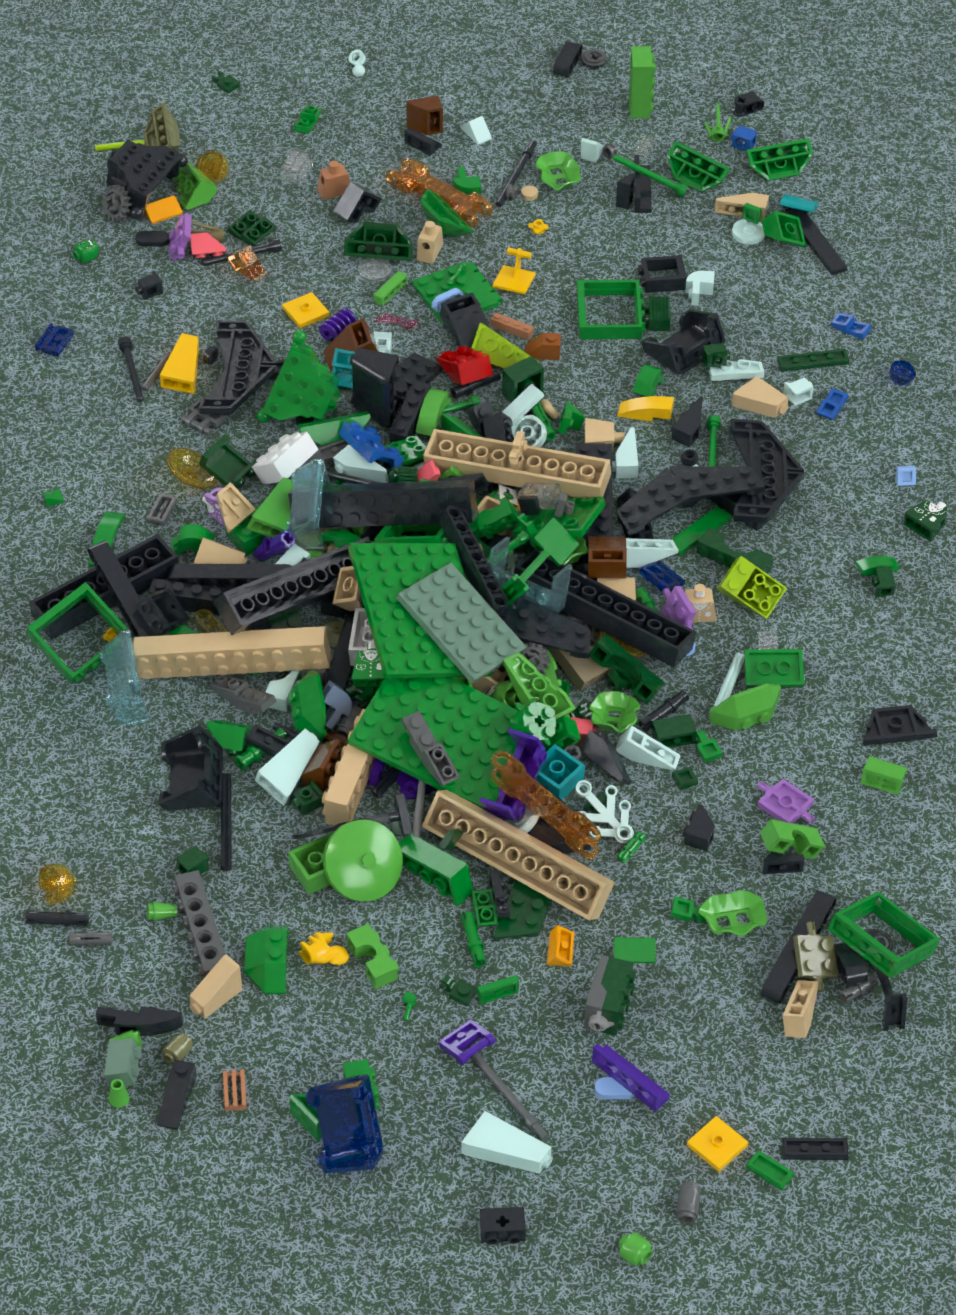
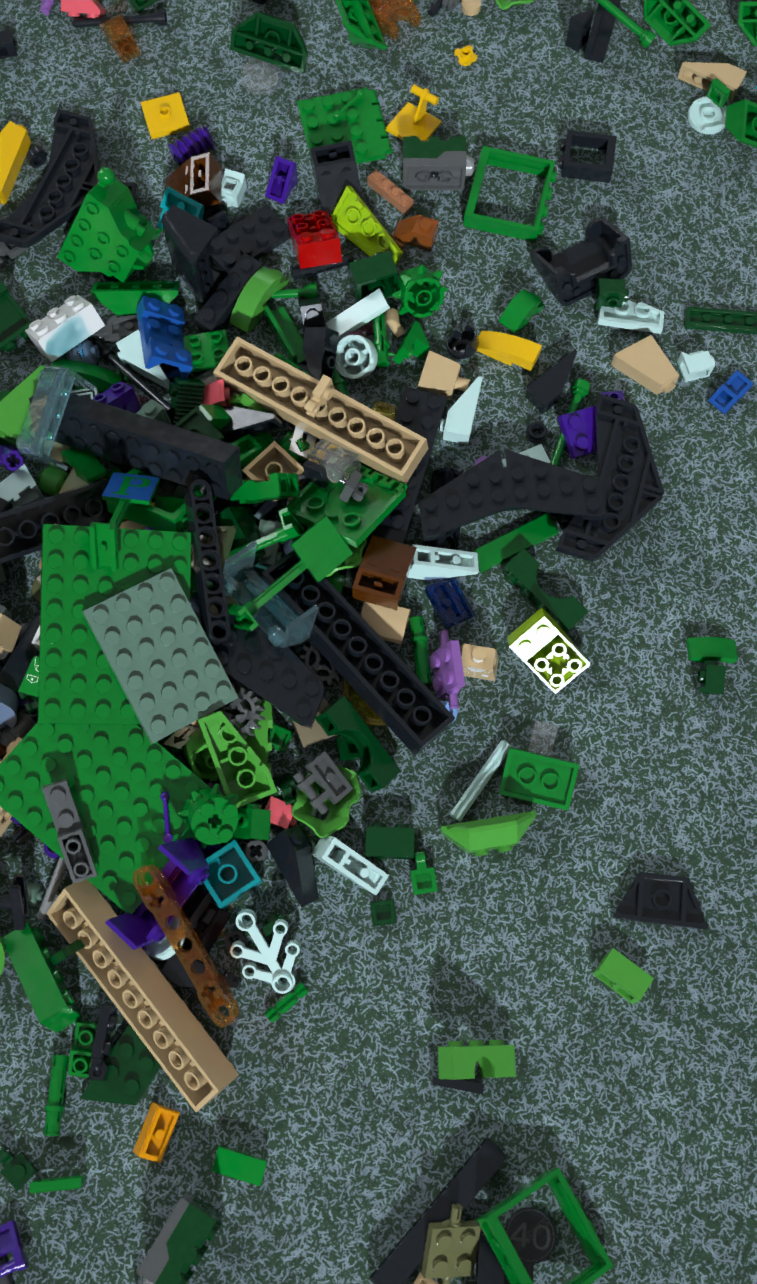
camera: 15 degrees right, 25 degrees up
(390, 288) = (269, 106): bright green piece -> none
(402, 540) = (125, 490): none -> green piece
(405, 322) = (257, 150): clear pink hair -> none
(421, 332) = (282, 179): none -> dark purple slope
(432, 236) = (331, 53): tan torso -> none
(451, 294) = (324, 138): light blue tile -> none
(492, 720) = (167, 836): none -> dark purple hinge
(543, 298) = (435, 164): none -> dark grey piece
(563, 381) = (419, 291): none -> green brick
(610, 696) = (329, 779): none -> dark grey plate
(611, 411) = (463, 343): none -> black hair
(659, 313) = (565, 213): dark green brick -> none
(669, 706) = (389, 805): black pin -> none
(685, 910) = (318, 1119): green plate -> none
(699, 283) = (625, 179): light aqua brick -> none
(700, 830) = (375, 1003): black slope -> none
(723, 449) = (579, 431): none -> dark purple wing
(731, 905) = (373, 1167): bright green piece -> none
(785, 802) = (491, 986): medium lavender plate -> none

